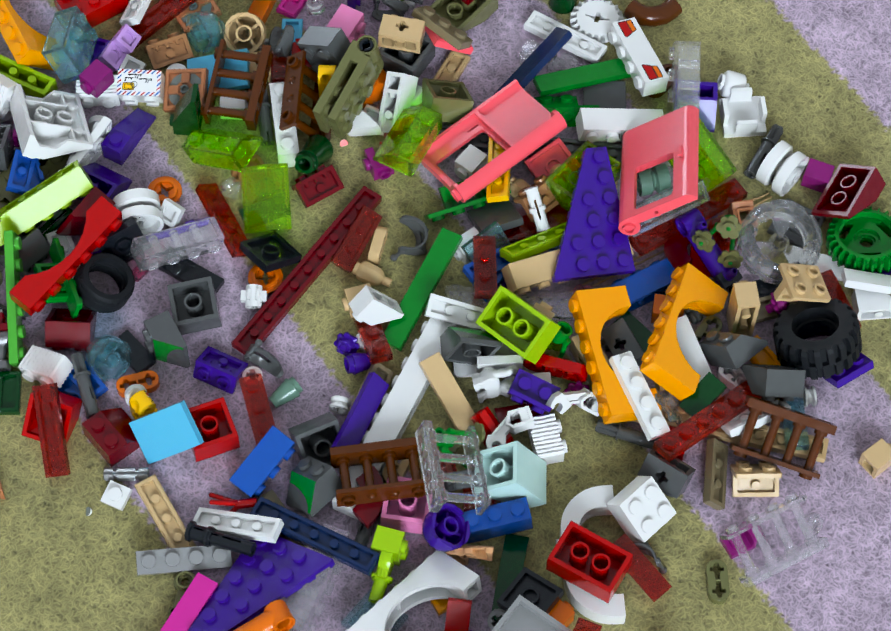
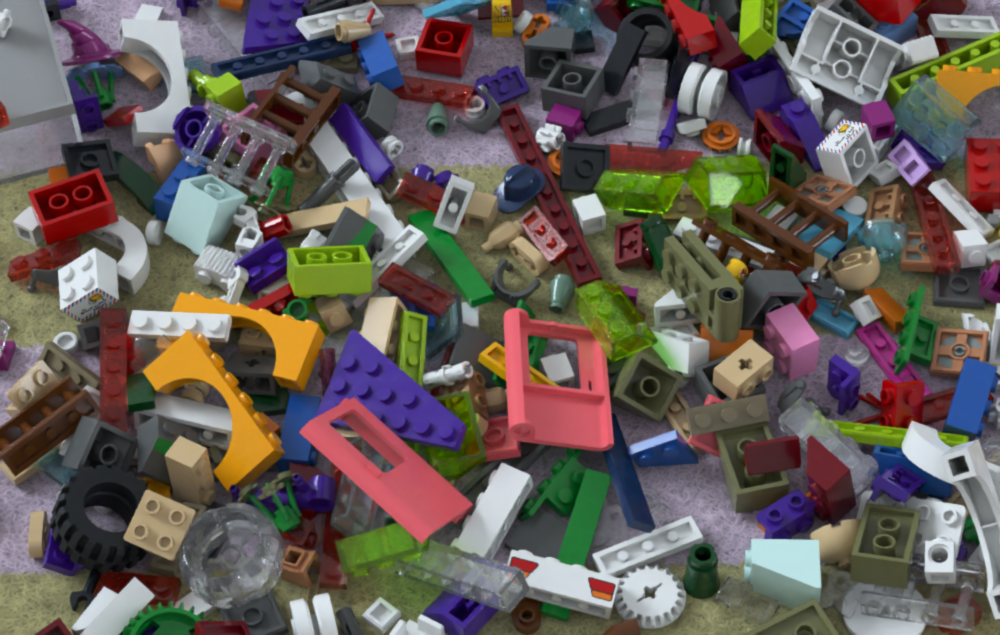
camera: 130 degrees right, 10 degrees down
(139, 287) = (622, 57): none -> black tile
(152, 143) = (771, 130): none -> dark red slope
(169, 167) = (744, 147): none -> white bush
(219, 469) = (406, 47): none -> white tile
(228, 299) = (567, 118): none -> magenta brick
(250, 499) = (351, 30): none -> tan cone
(278, 13) = (865, 310): none -> white plate
(309, 228) = (589, 214): none -> white brick
(318, 290) = (519, 187): none -> dark blue piece
(396, 205) = (560, 292): none -> sand green cone
(415, 402) = (331, 185): none -> dark grey axle
(489, 65) = (663, 451): none -> blue wing
(549, 514) = (154, 232): none -> white tile
(691, 503) = (67, 341): none -> white tile
(735, 153) = (381, 615): none -> white tile
(851, 392) = (37, 534): none -> tan beam
(865, 334) = (87, 593): none -> black bar

